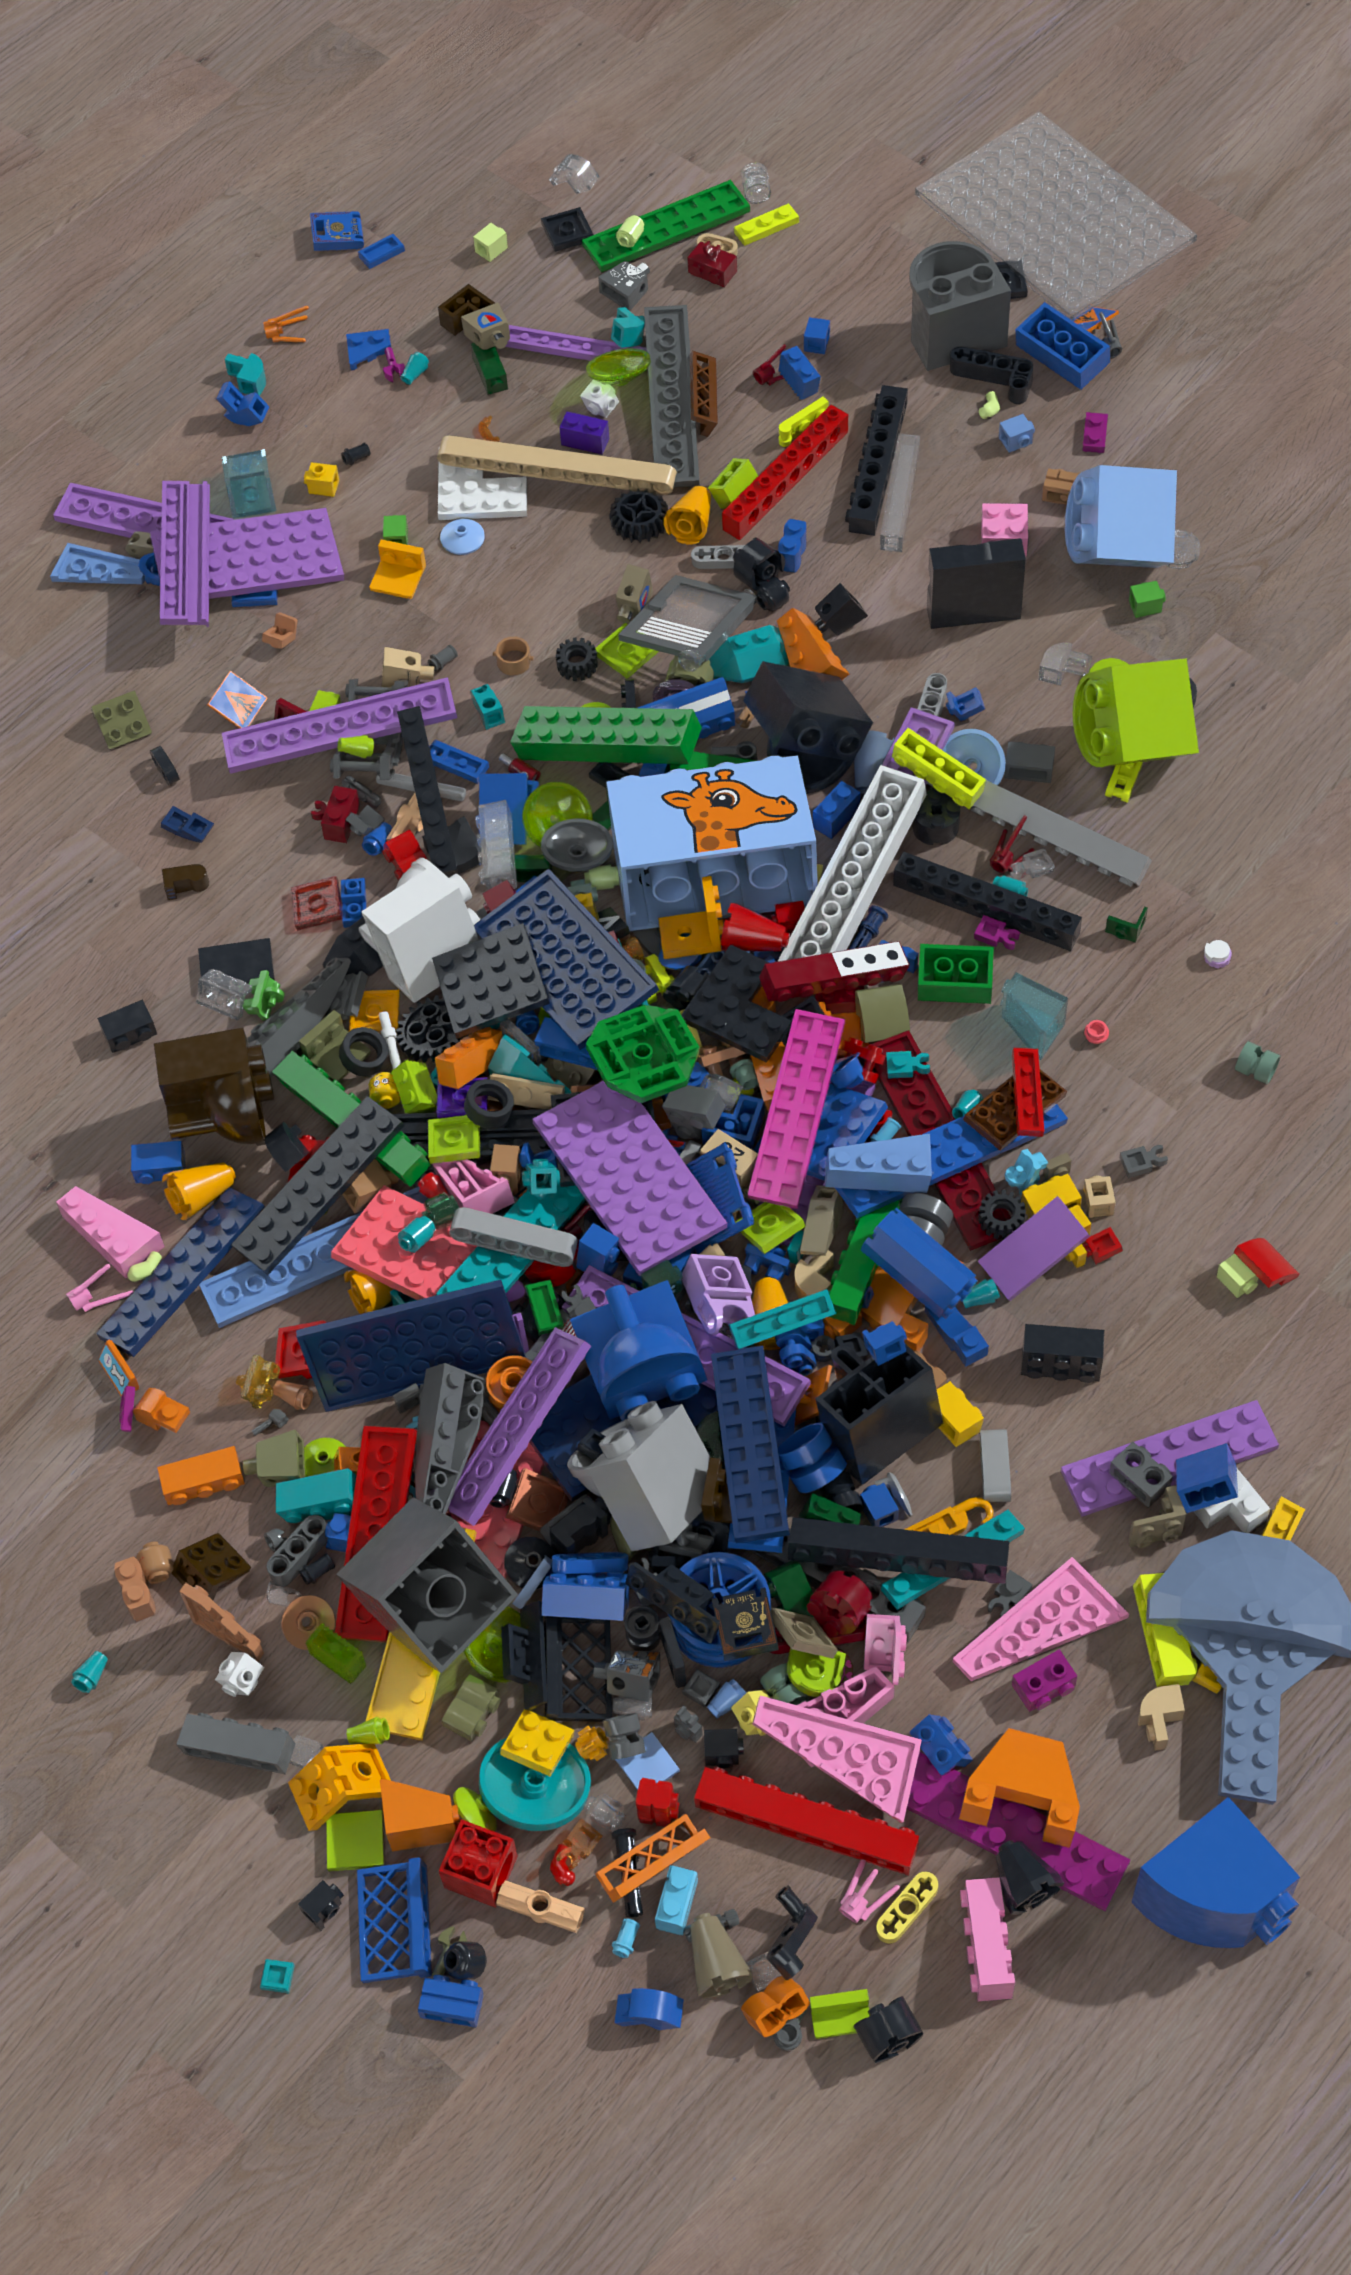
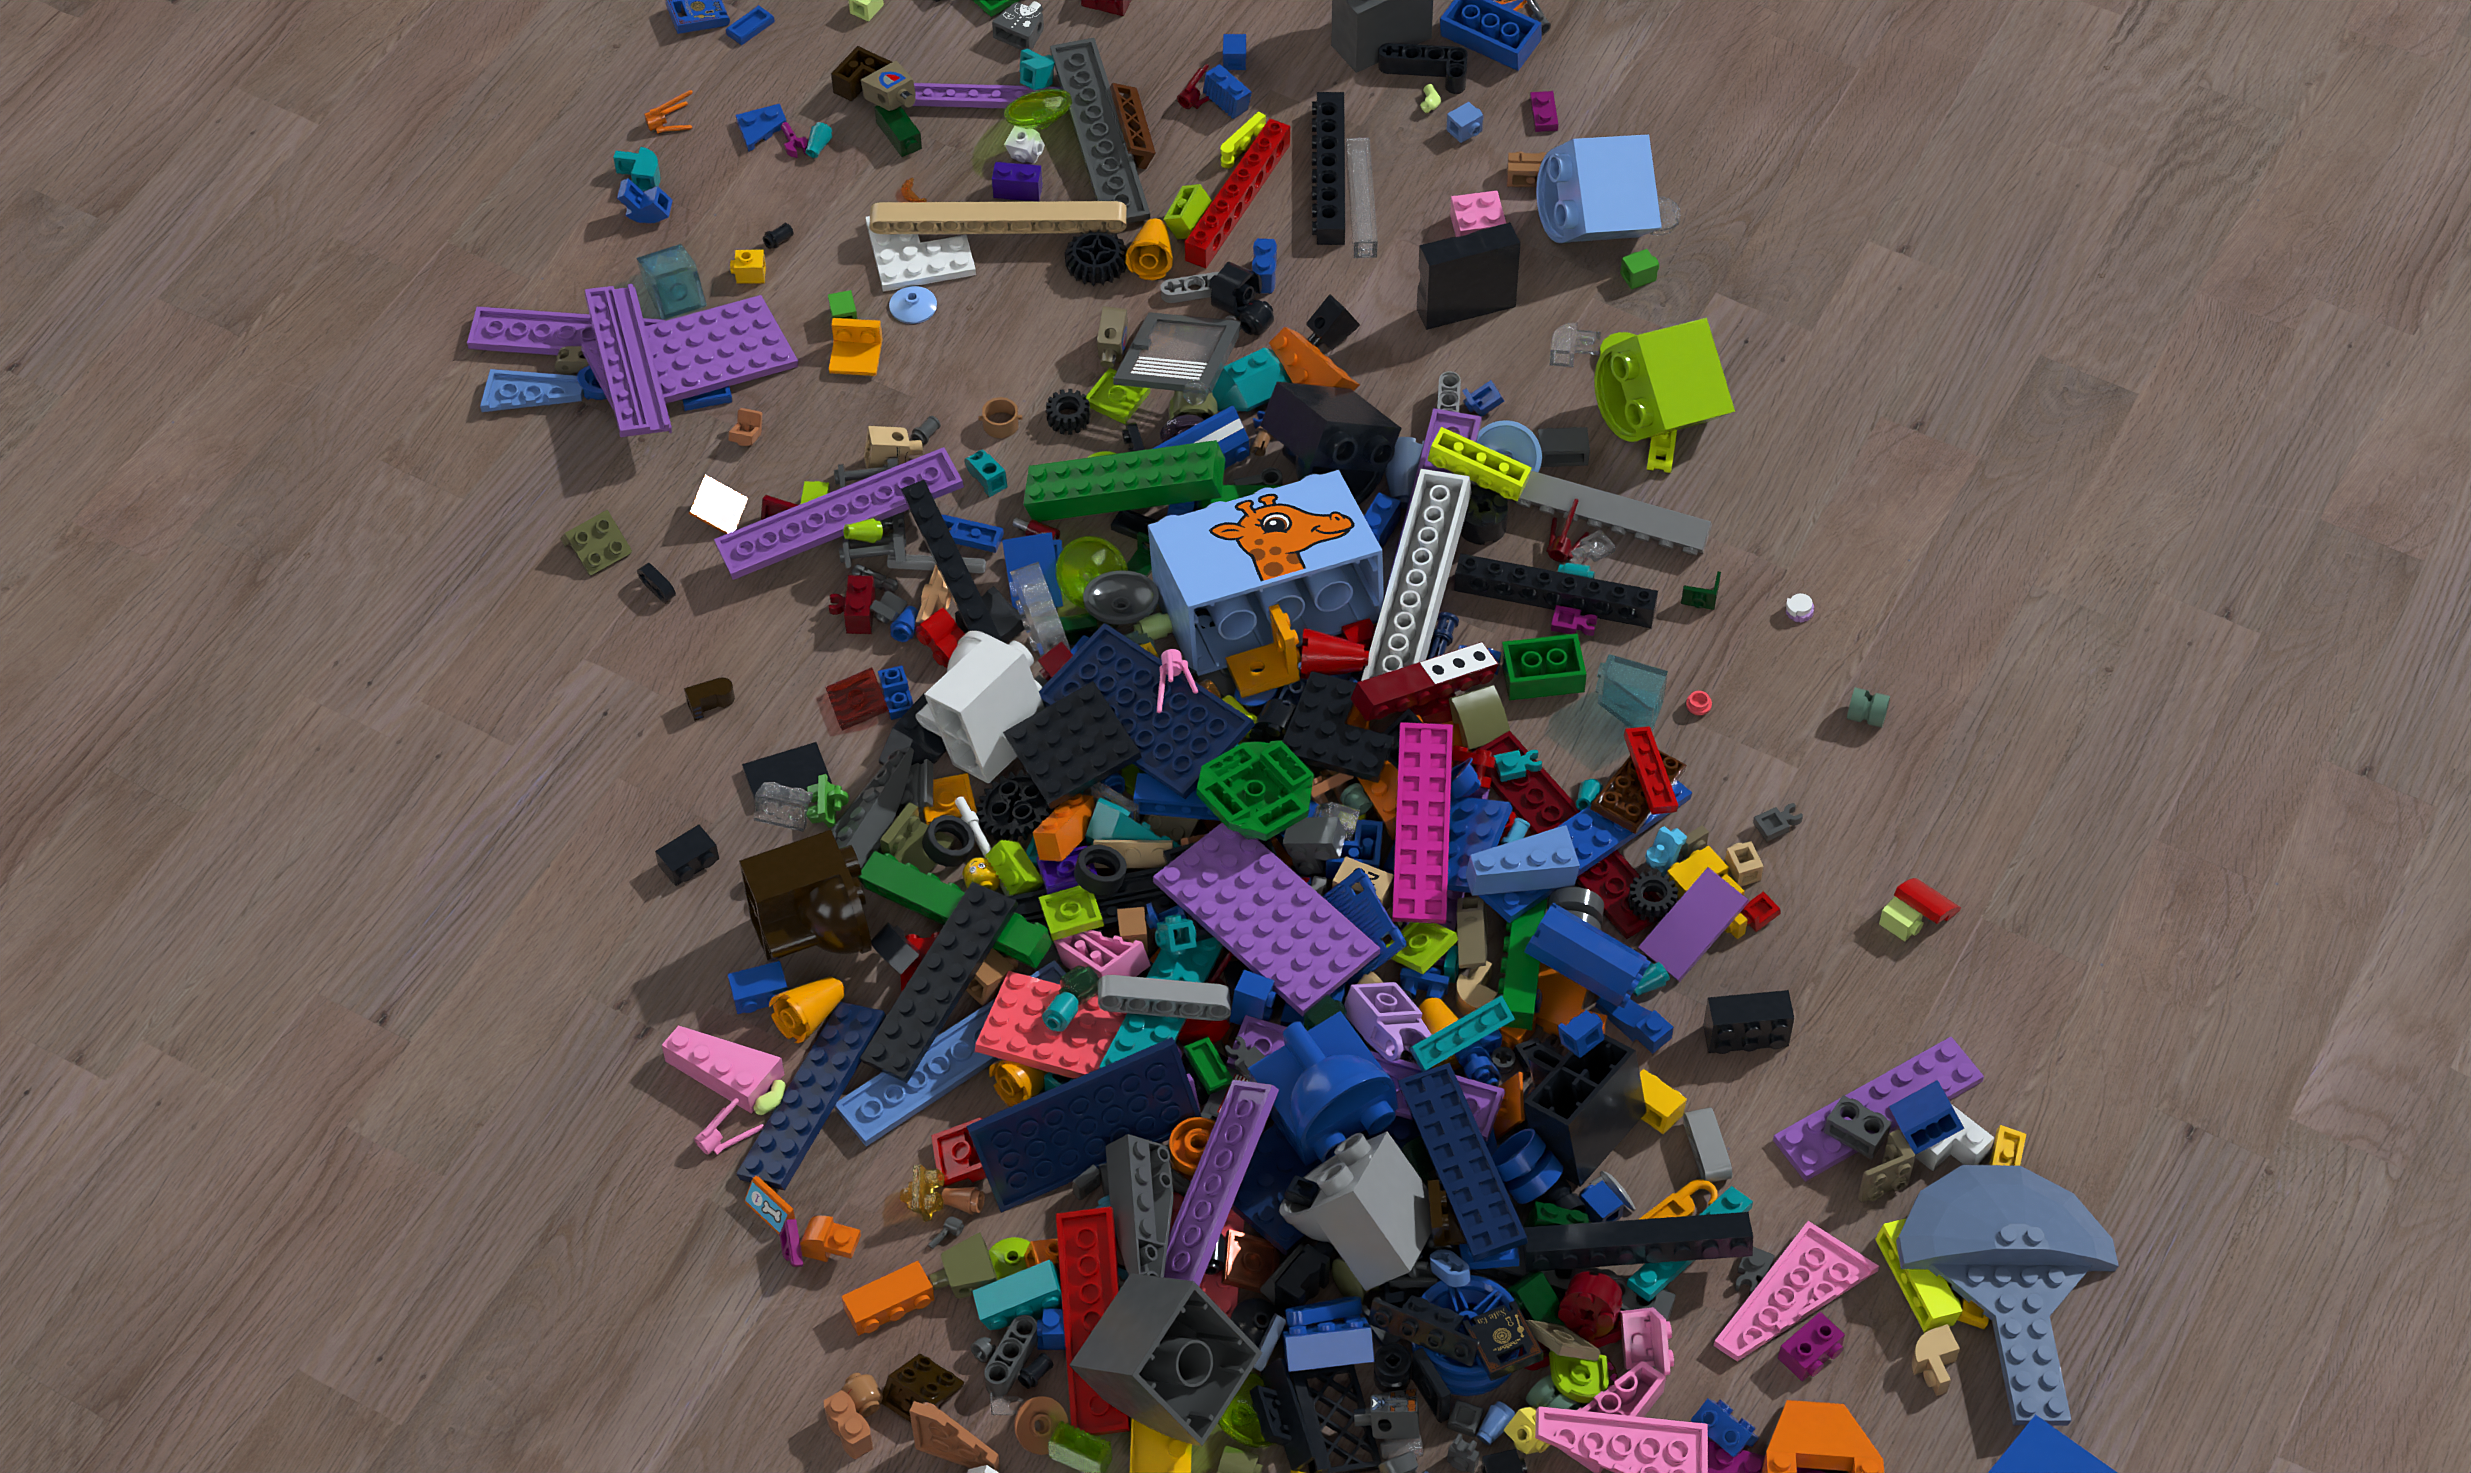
camera: 15 degrees left, 5 degrees down
(187, 826) = (696, 642): dark blue slope -> none
(431, 1185) = (1058, 964): red cone -> none
(595, 921) = (1172, 666): none -> bright pink plant
(714, 1544) = (1450, 1268): none -> medium blue beam

